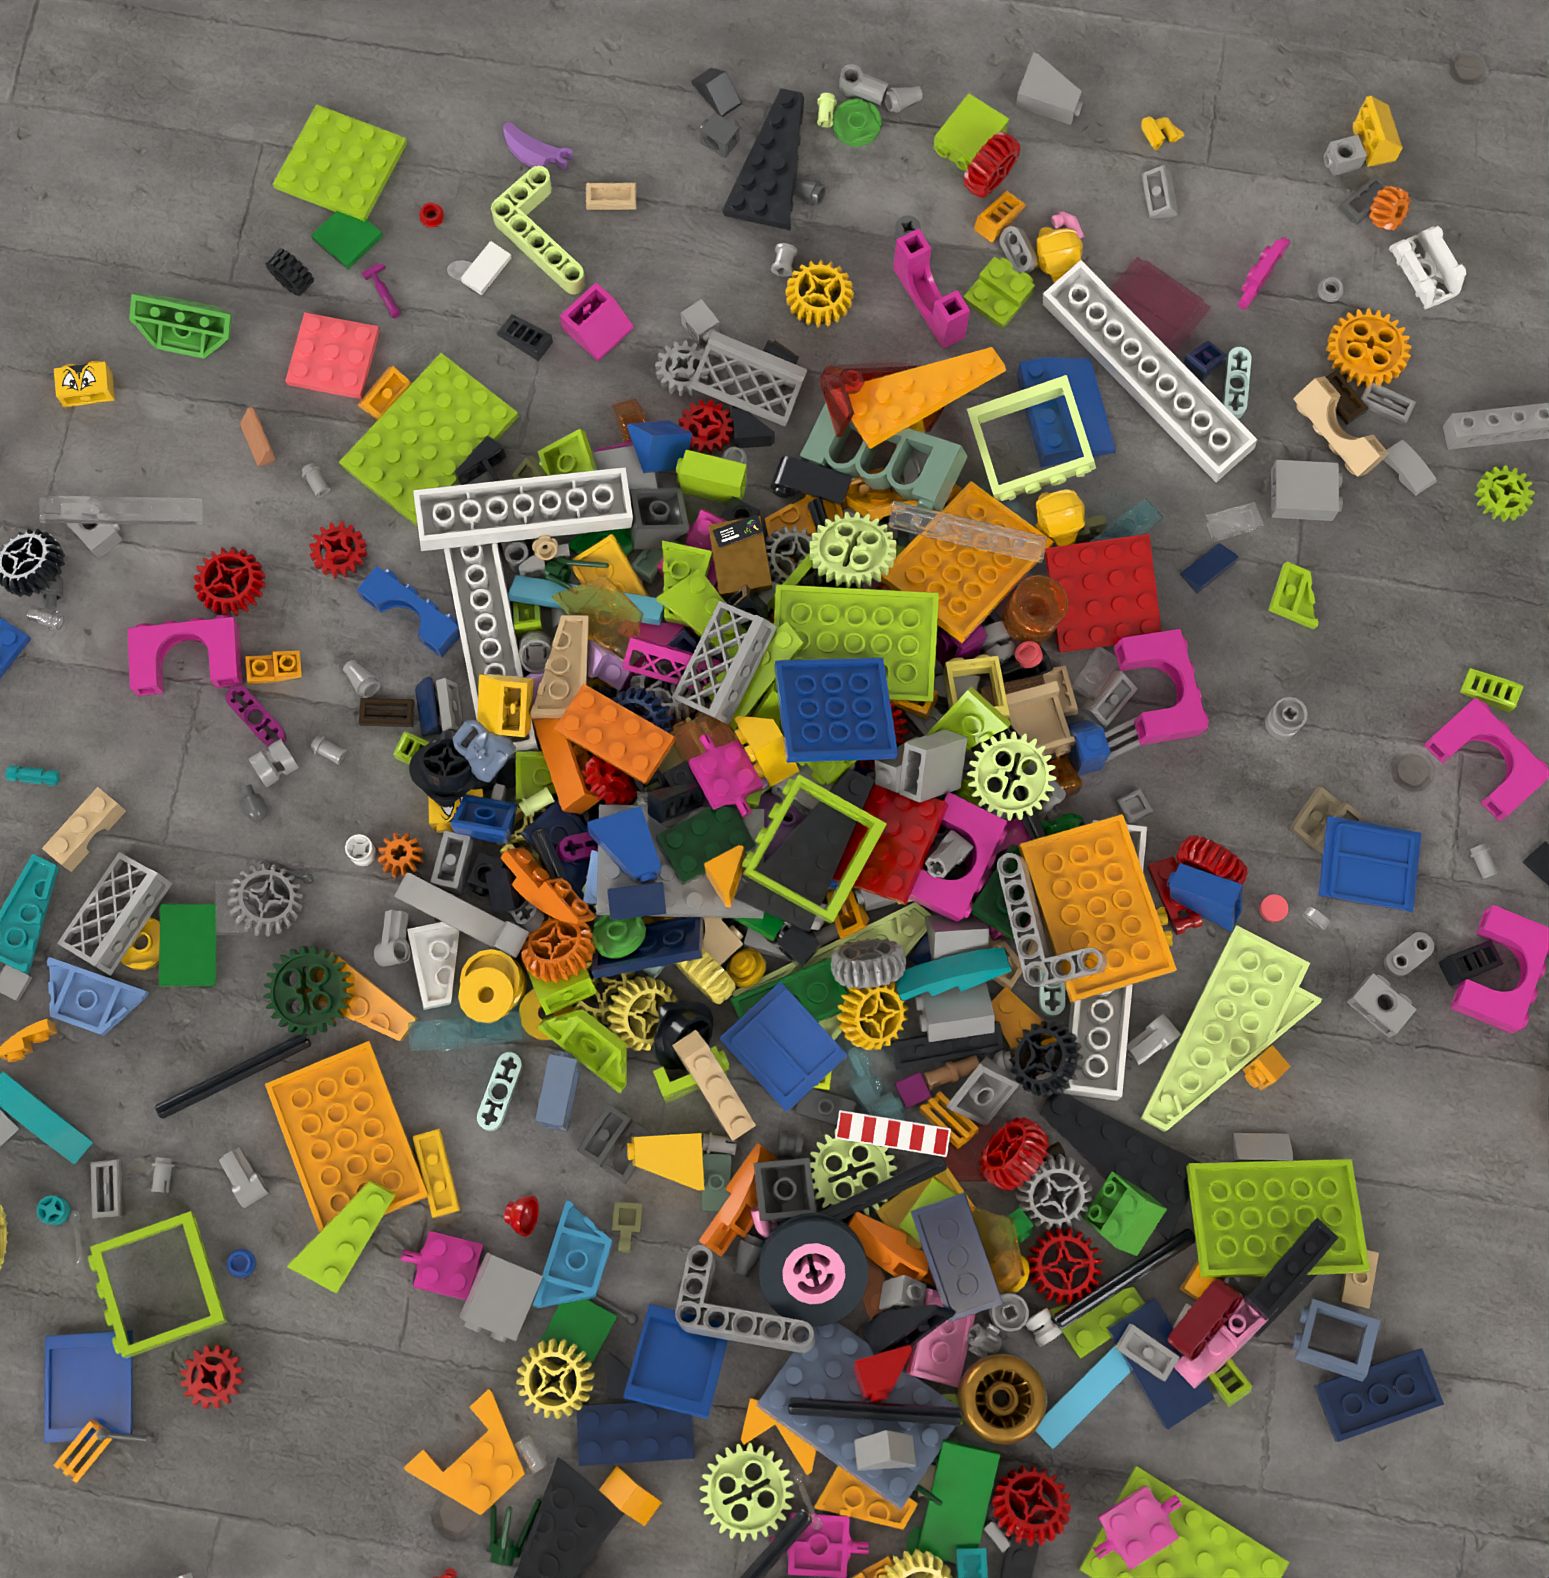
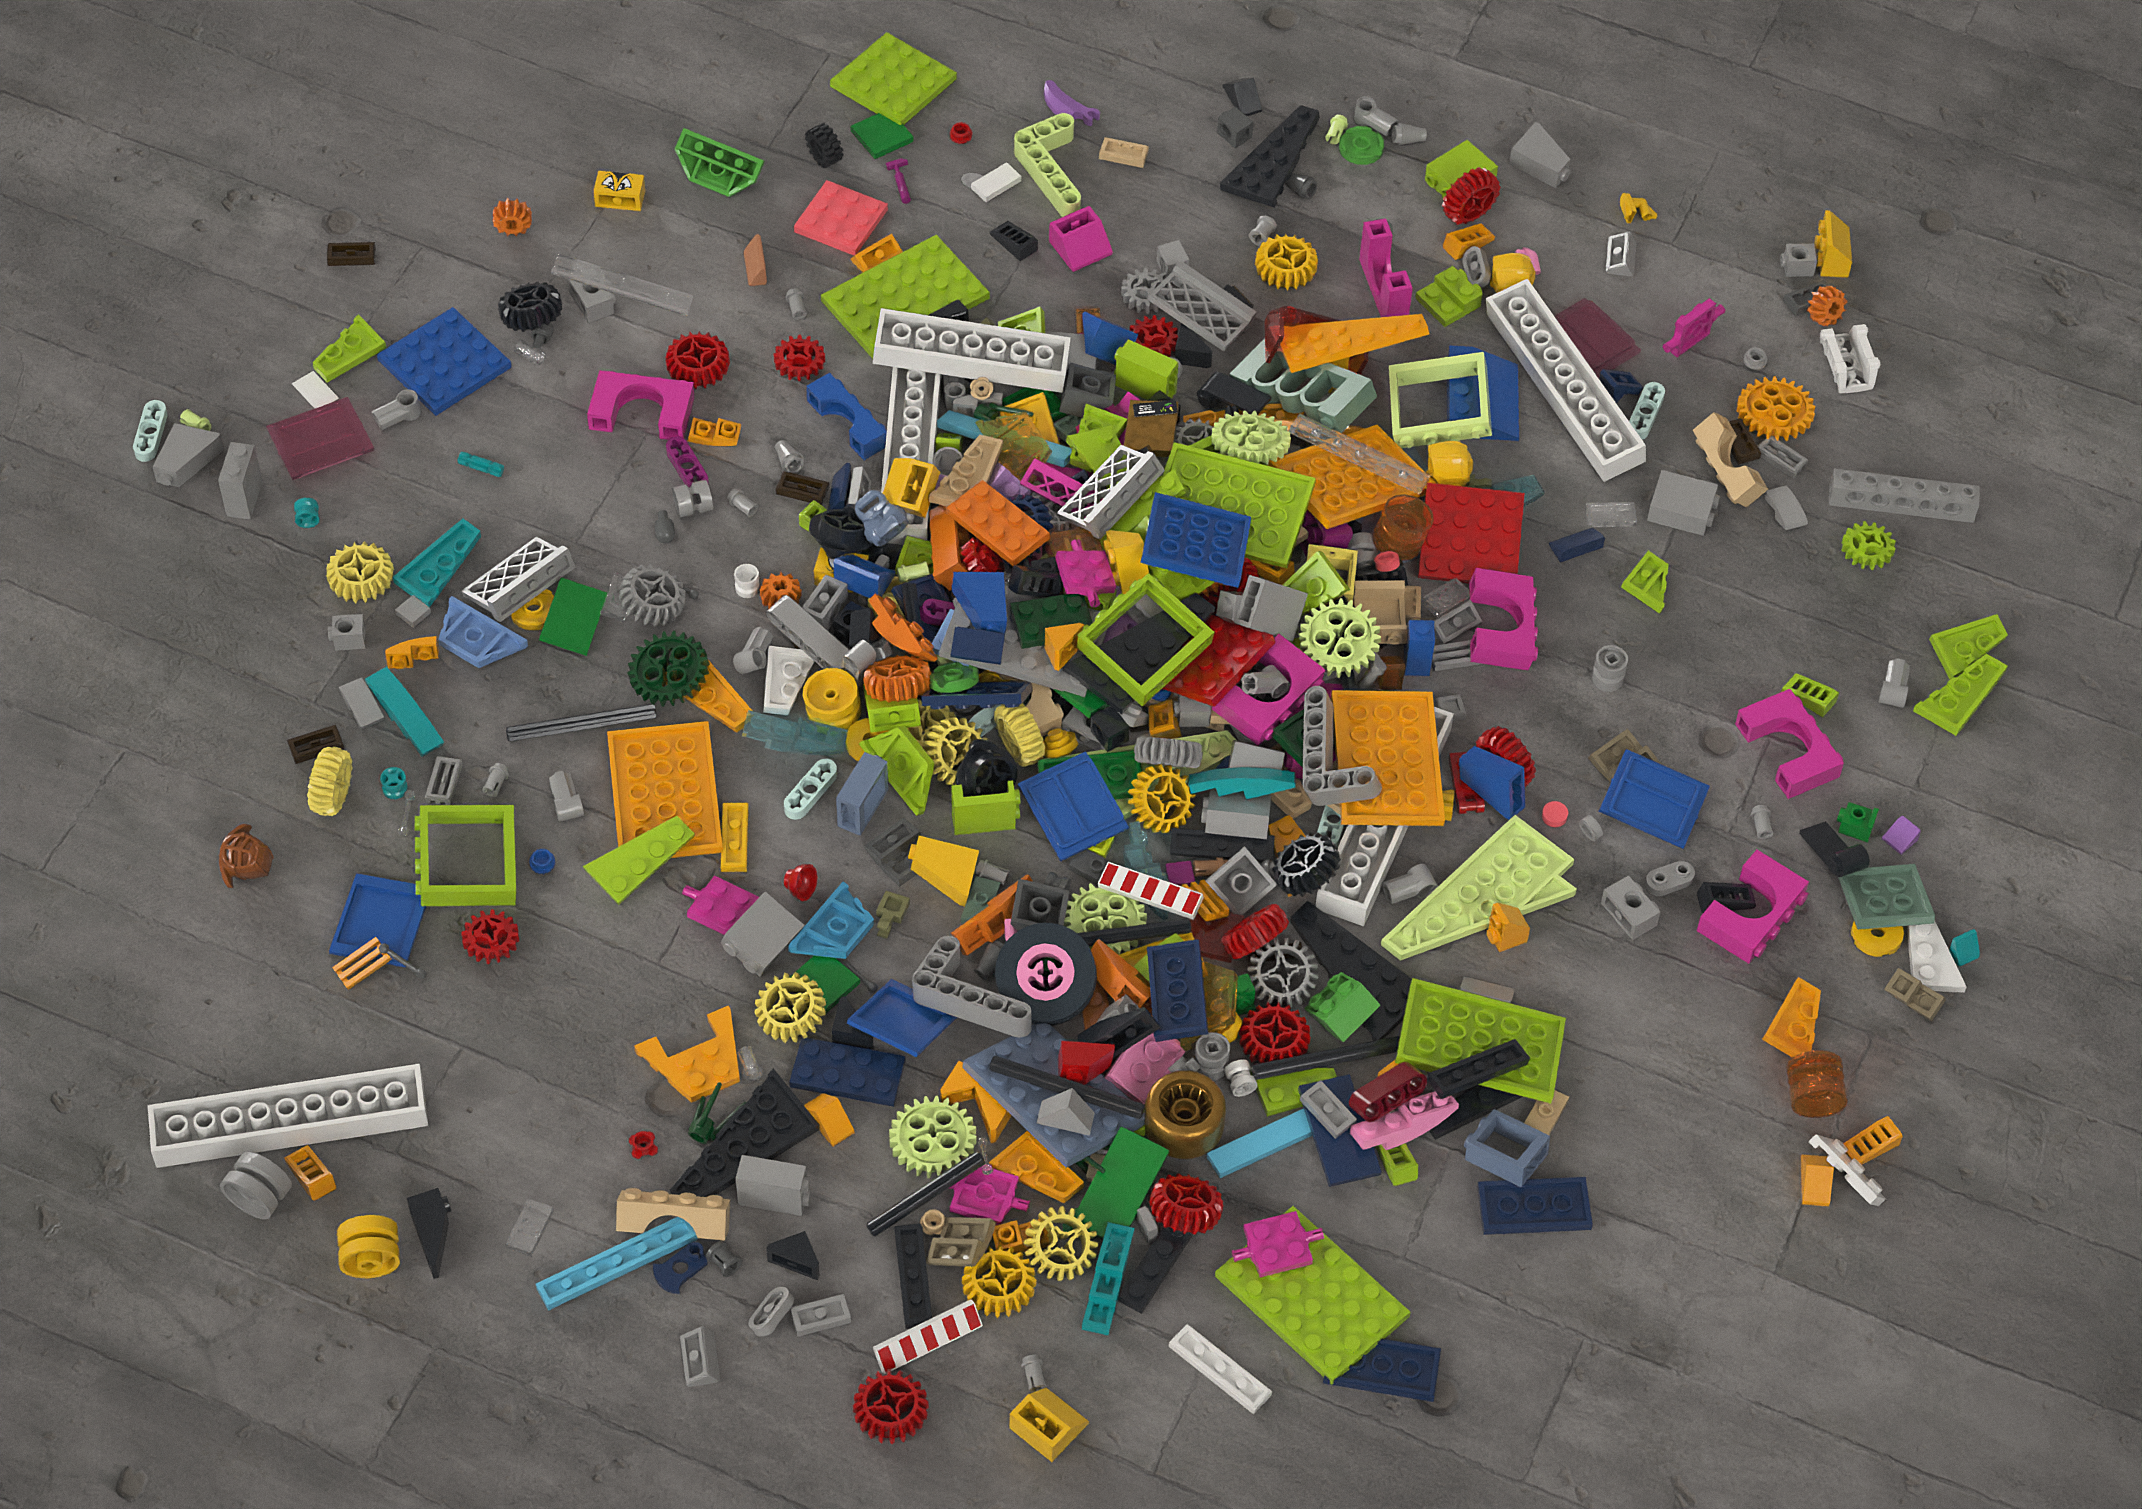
camera: 15 degrees right, 20 degrees down
(70, 842) = (496, 516): tan arch -> none
(470, 995) = (819, 688): yellow tile -> none
(714, 1085) = (1007, 828): tan arch -> none

